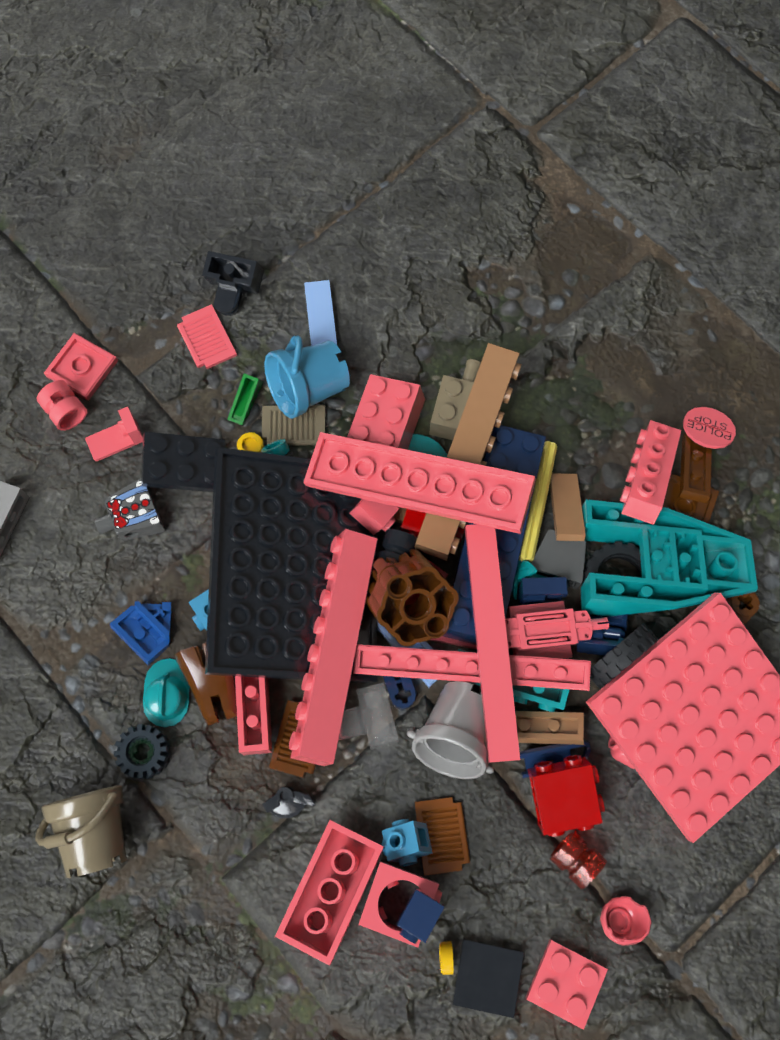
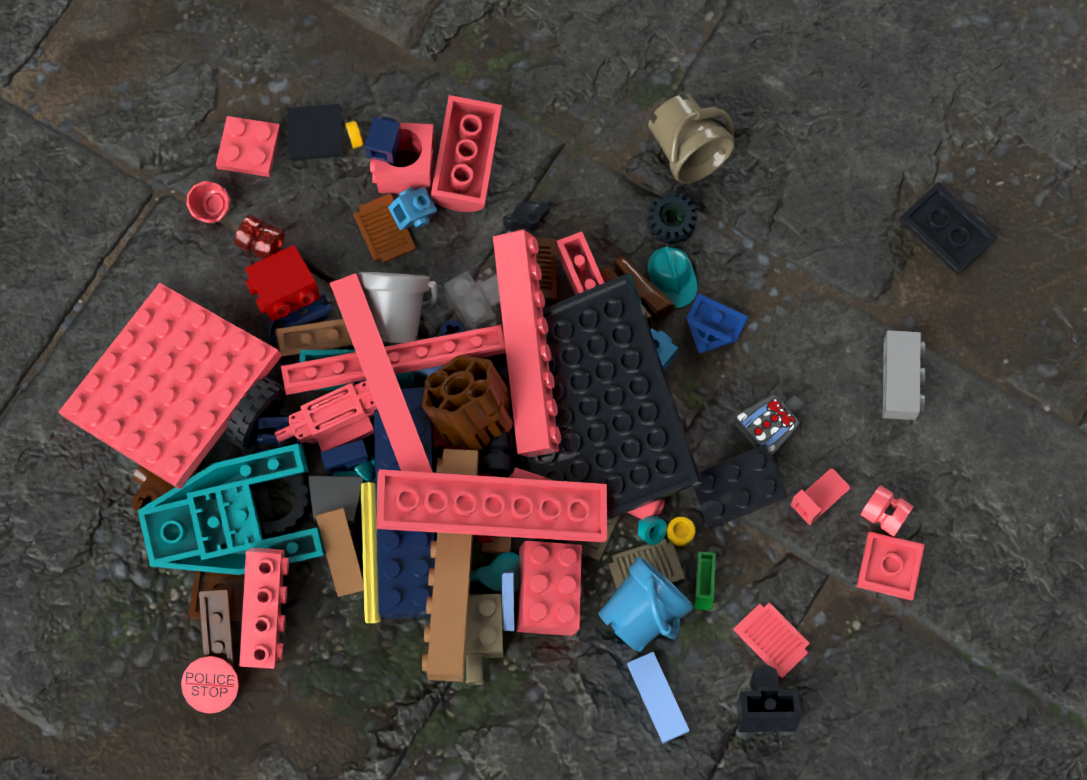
camera: 165 degrees right, 0 degrees up
(424, 422) = (508, 611): none -> light blue tile

